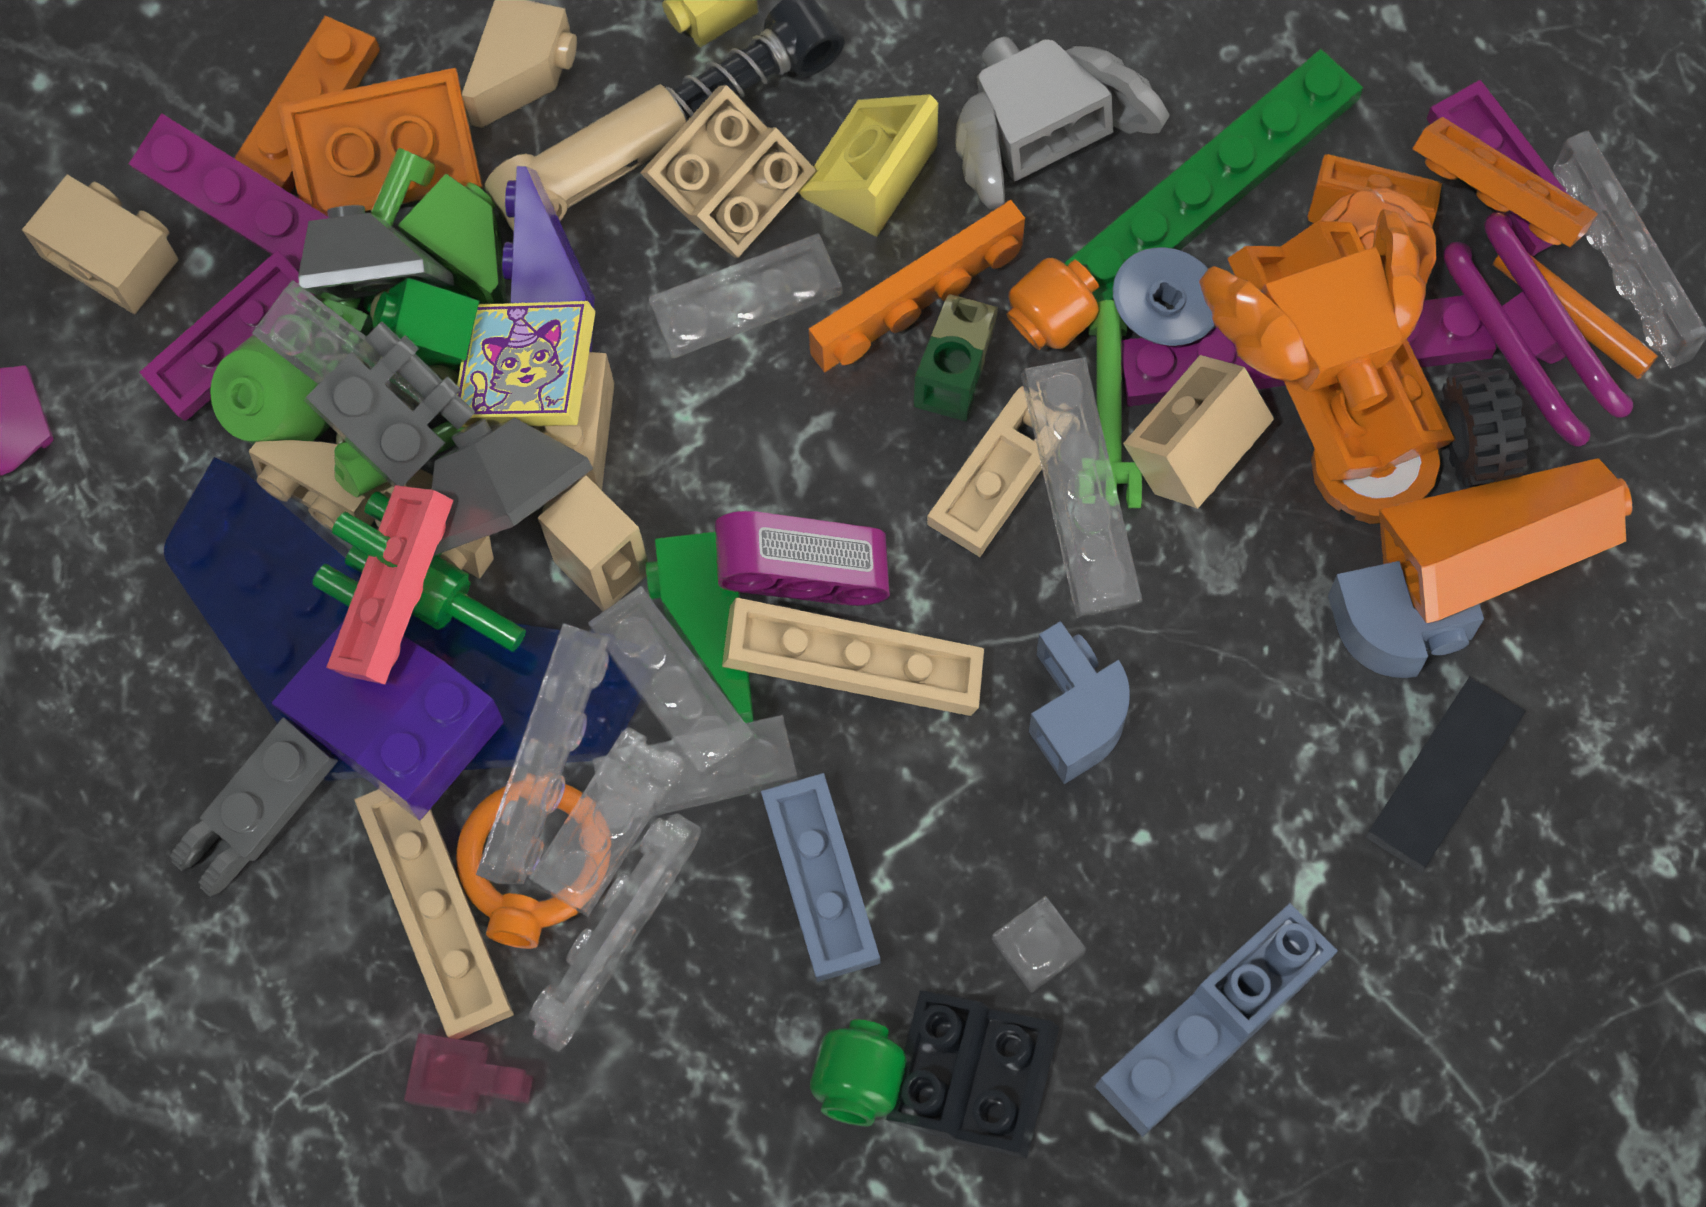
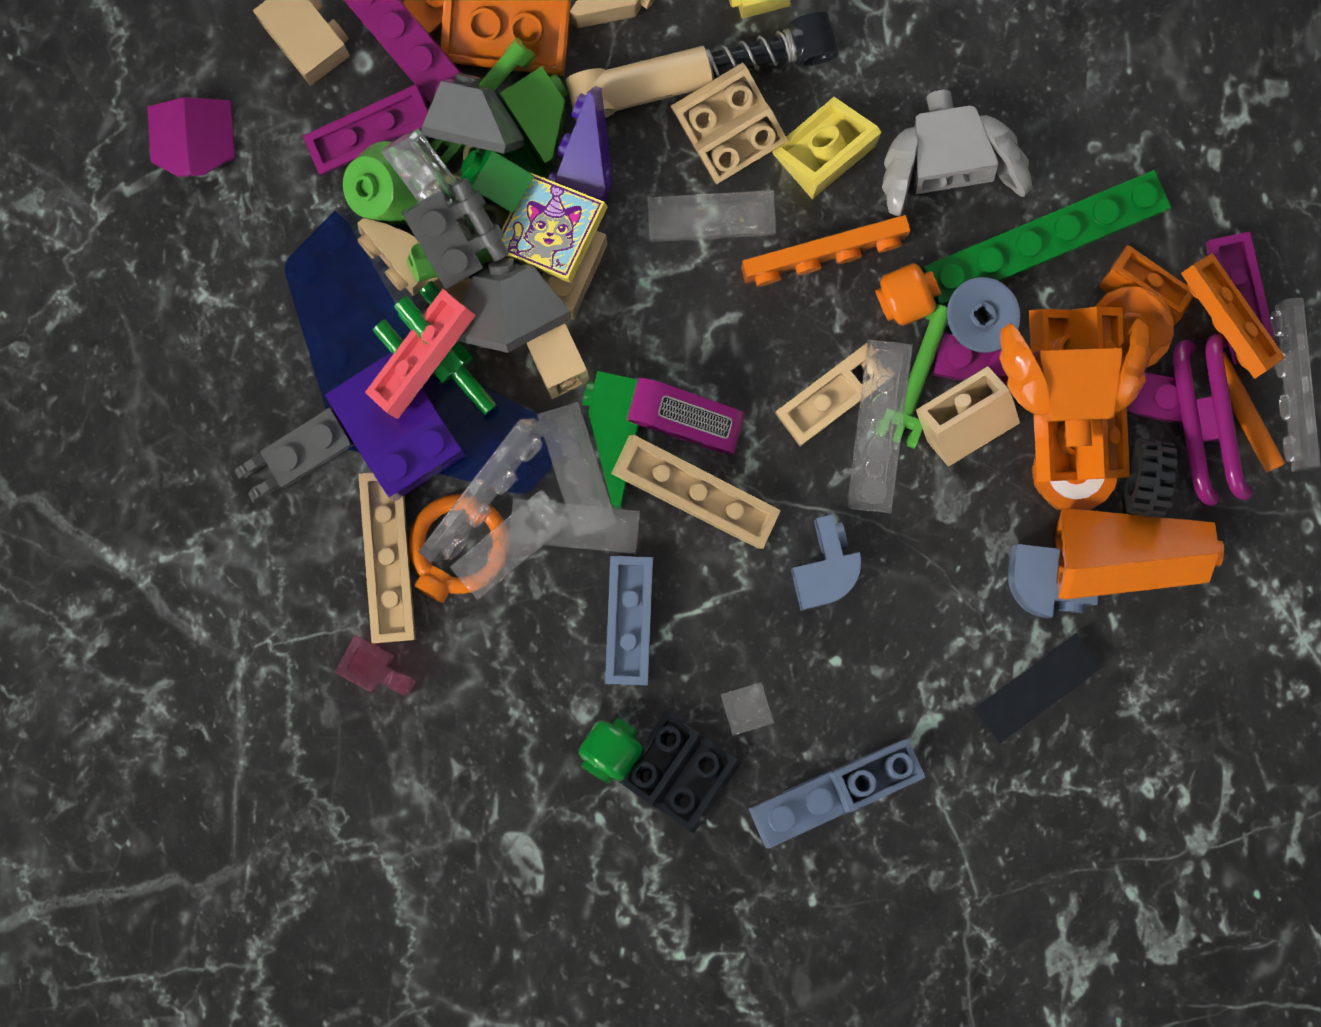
camera: 15 degrees right, 15 degrees up
(600, 952) = (478, 621): clear plate -> none
(954, 357) = (832, 306): dark green leg -> none

